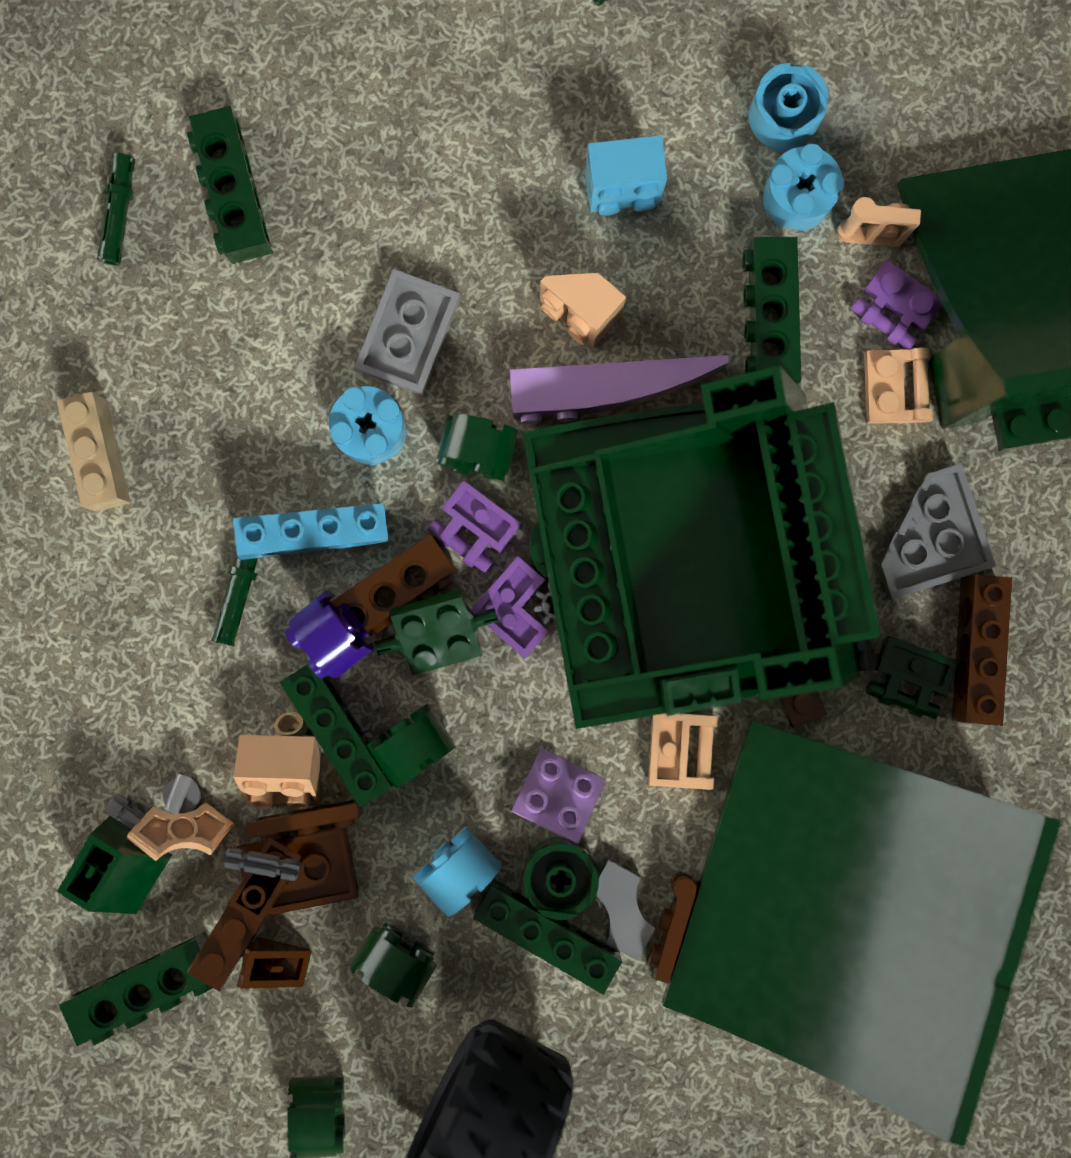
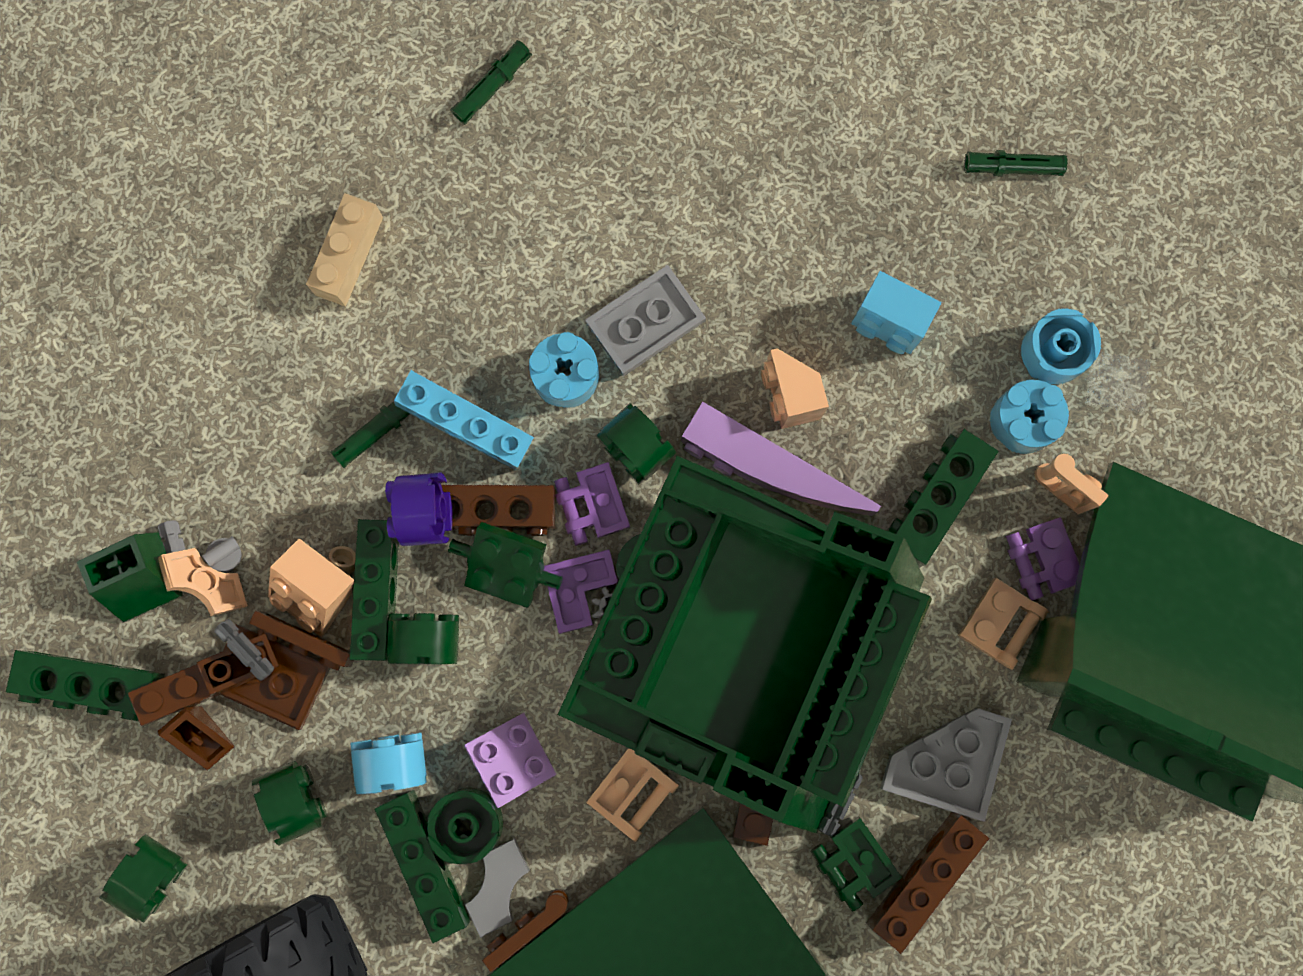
camera: 35 degrees right, 5 degrees down
(216, 131) = (597, 73): dark green brick -> none

